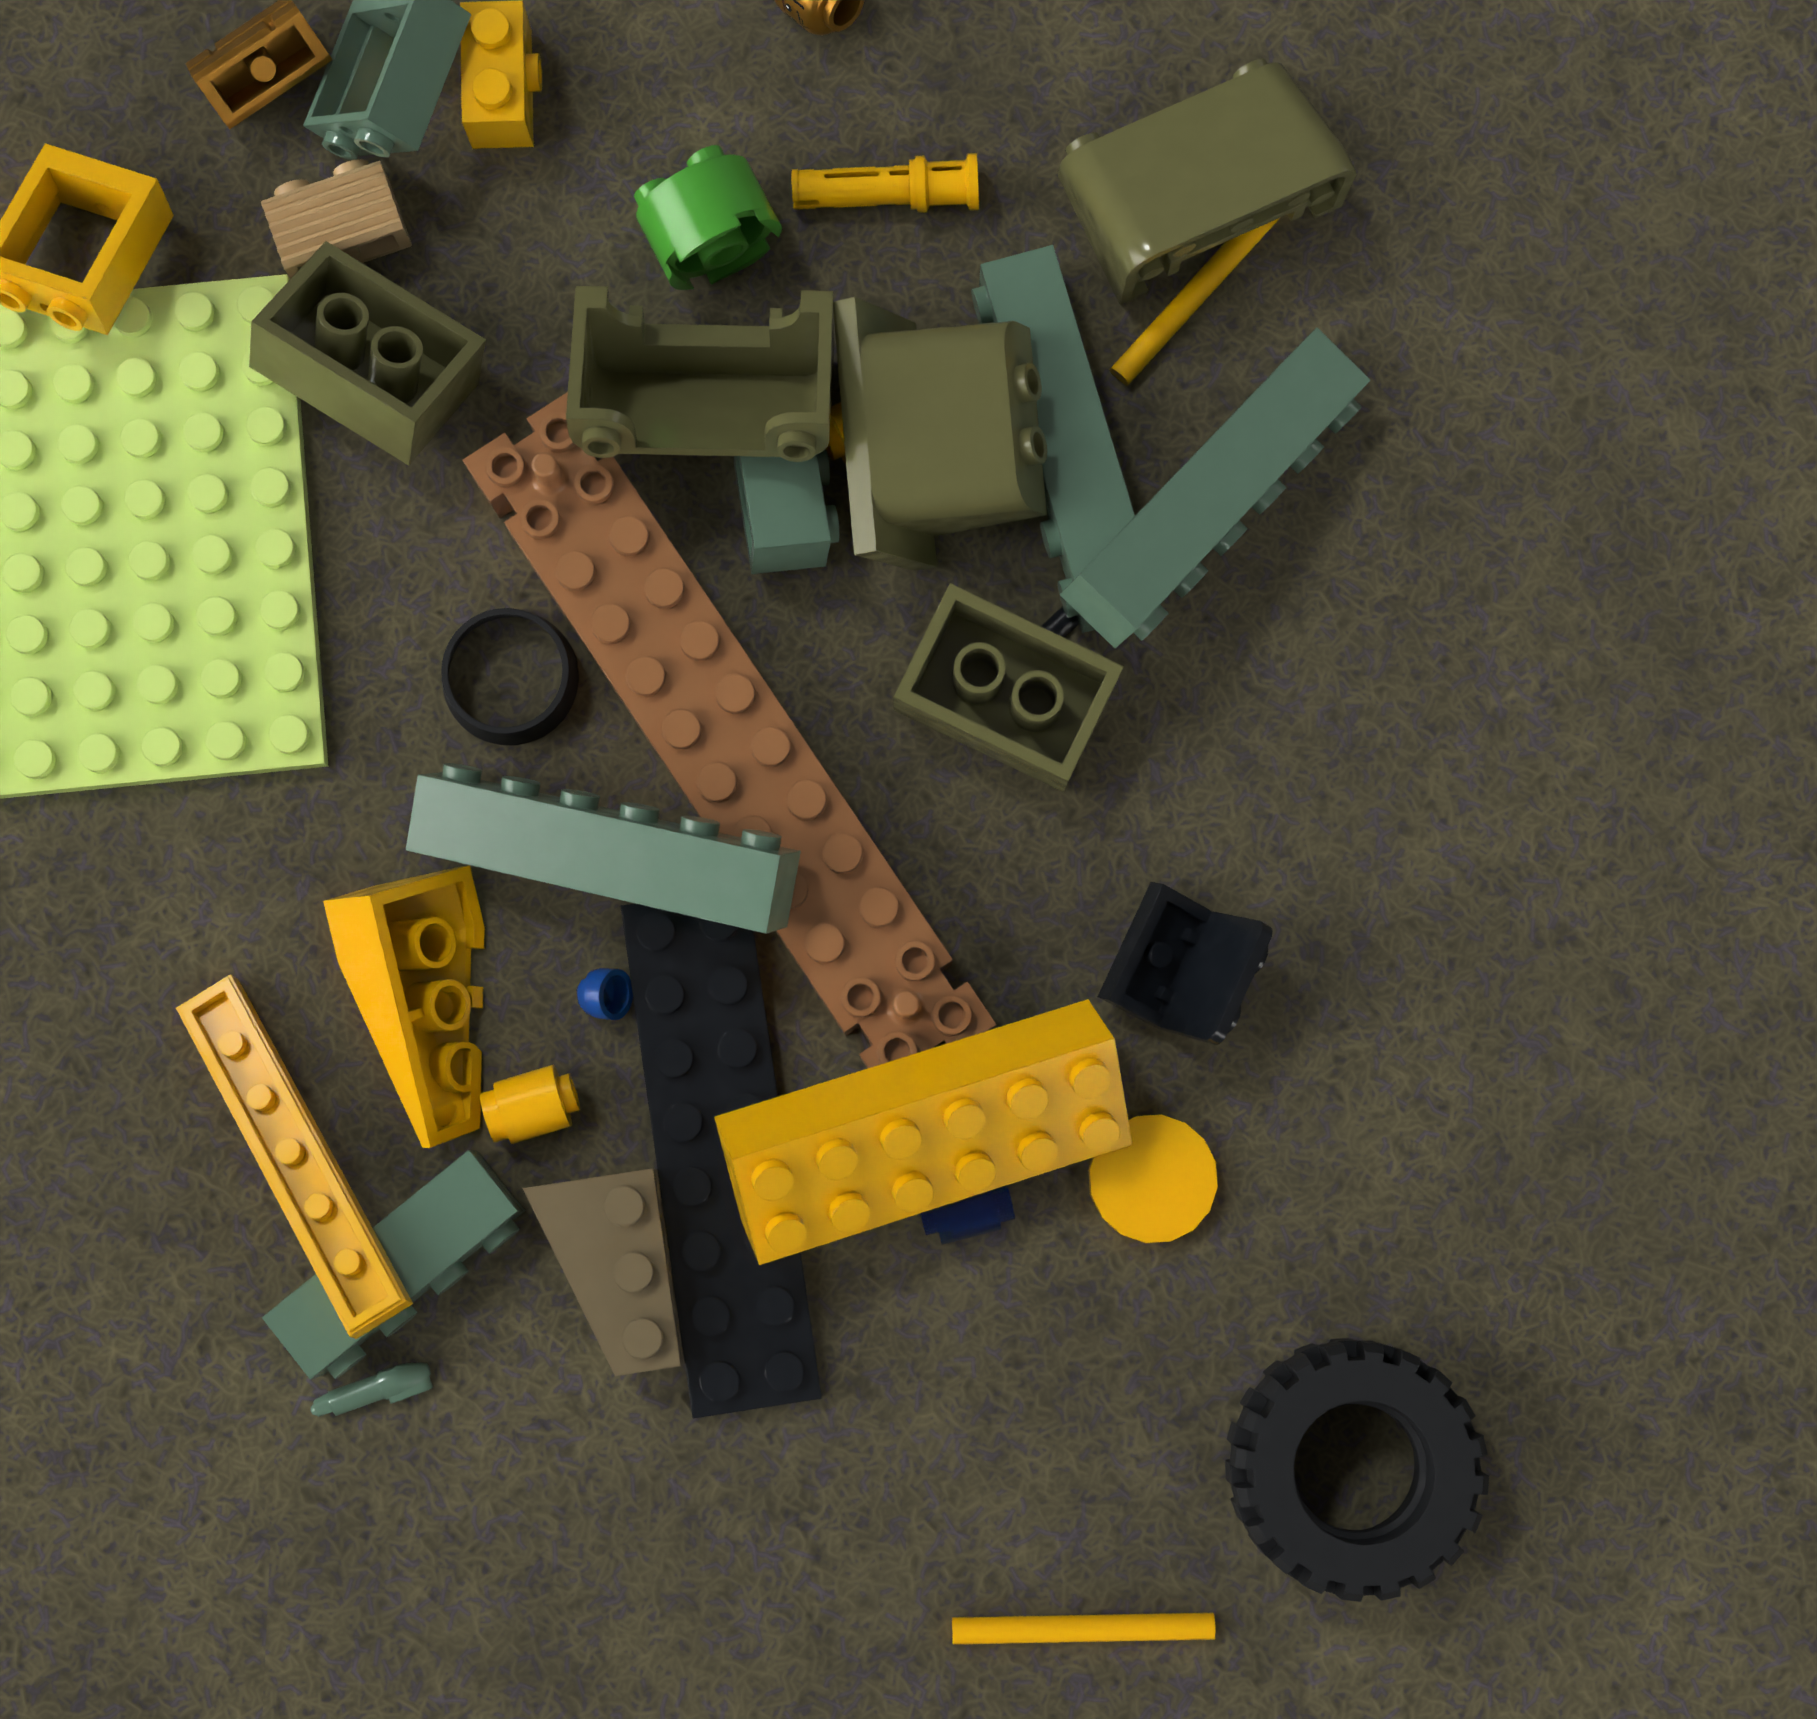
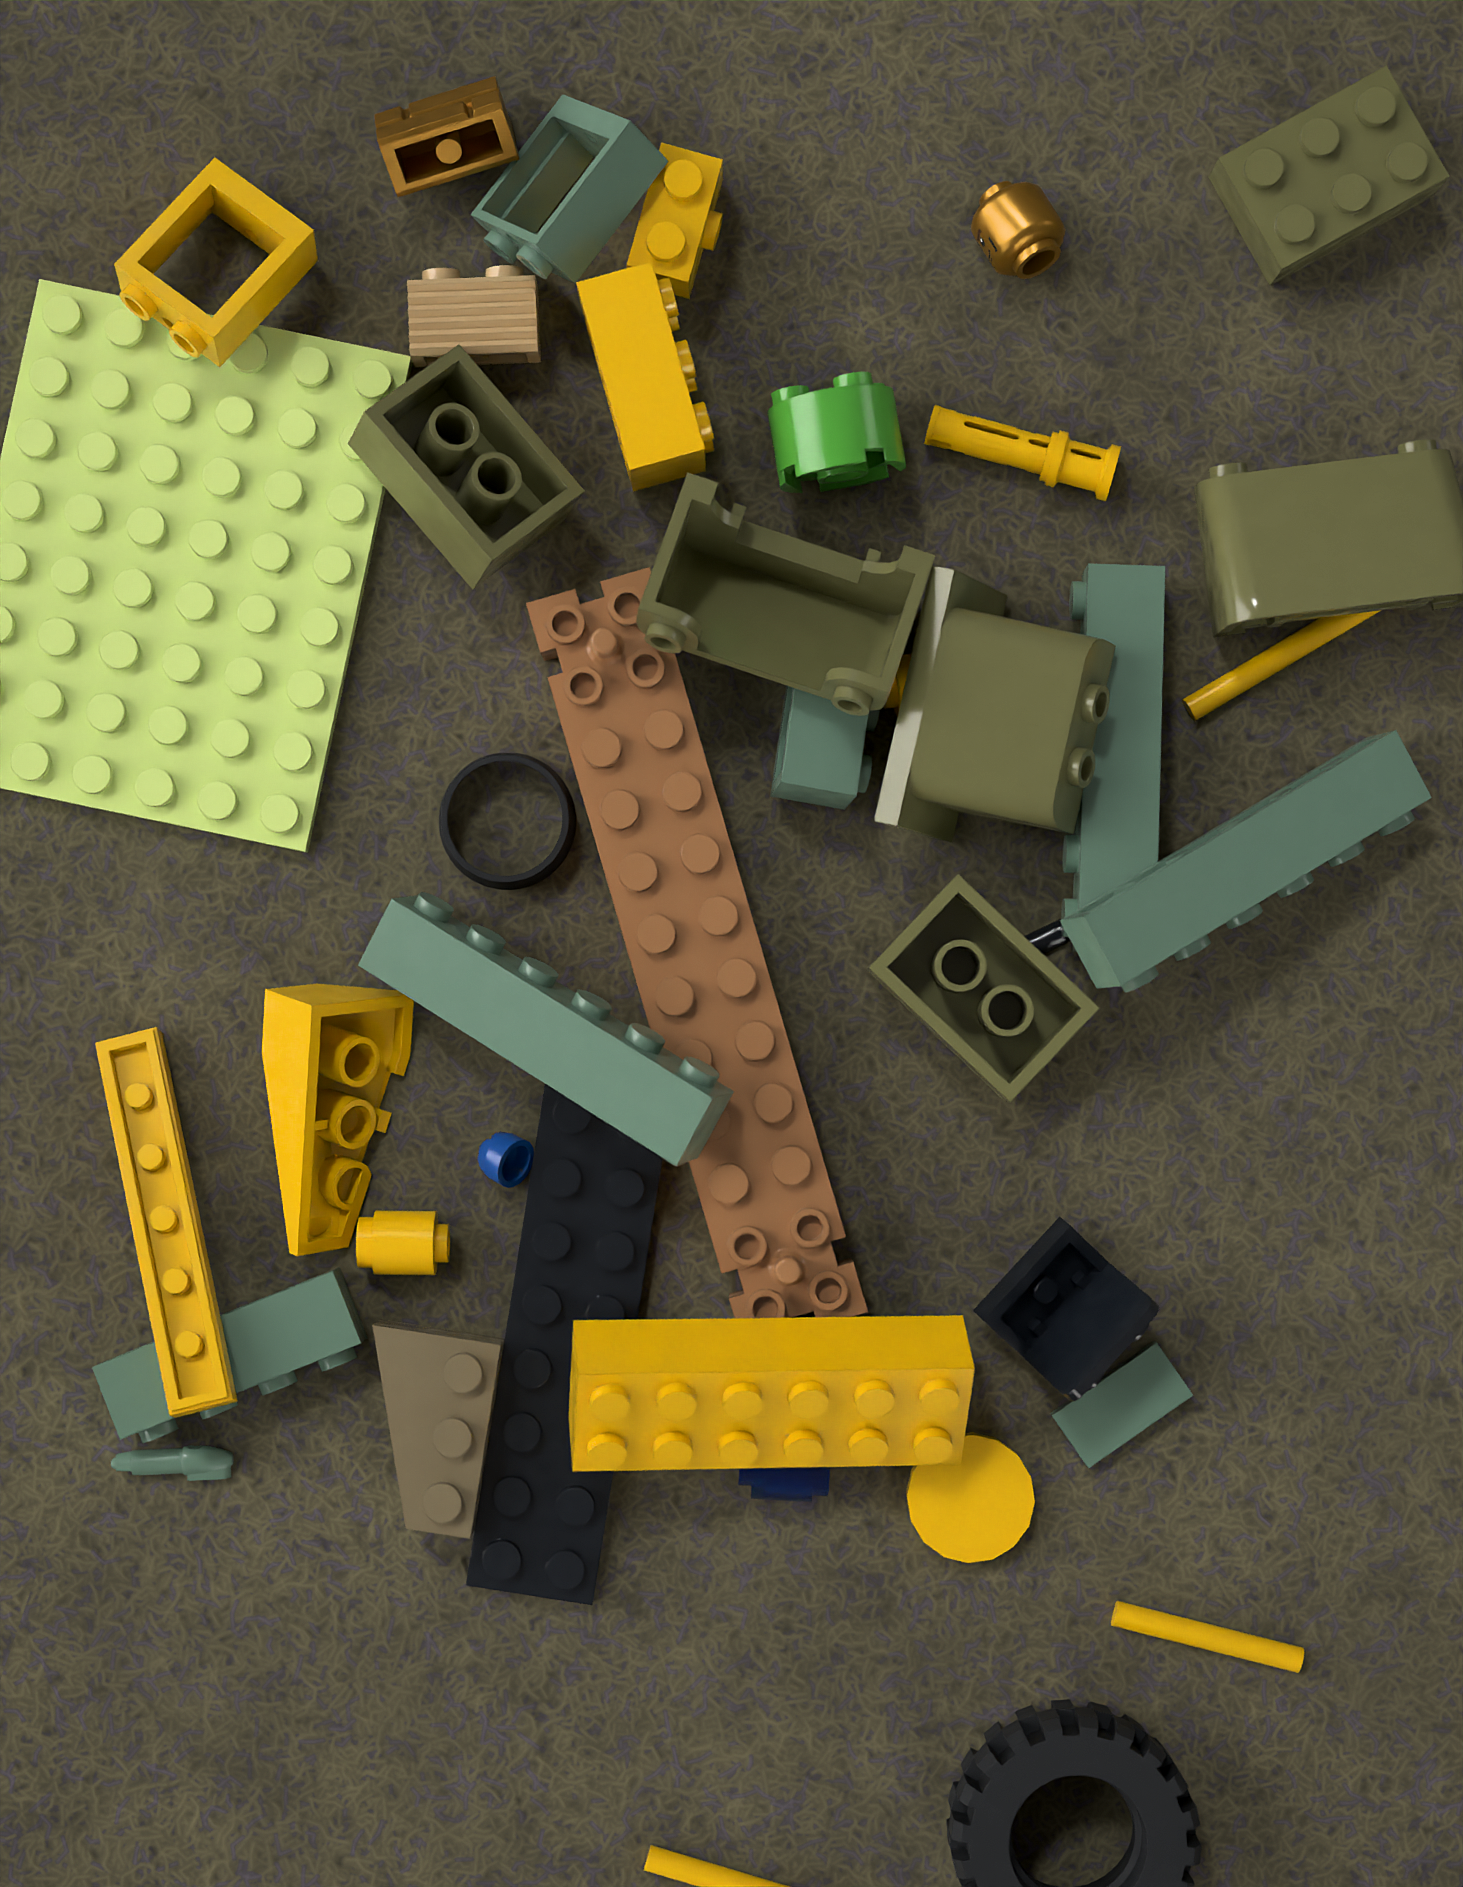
camera: 20 degrees right, 5 degrees up
(510, 216) = (646, 375): none -> yellow brick
(1268, 1043) = (1122, 1404): none -> sand green tile
(1423, 1240) = (1207, 1636): none -> yellow bar

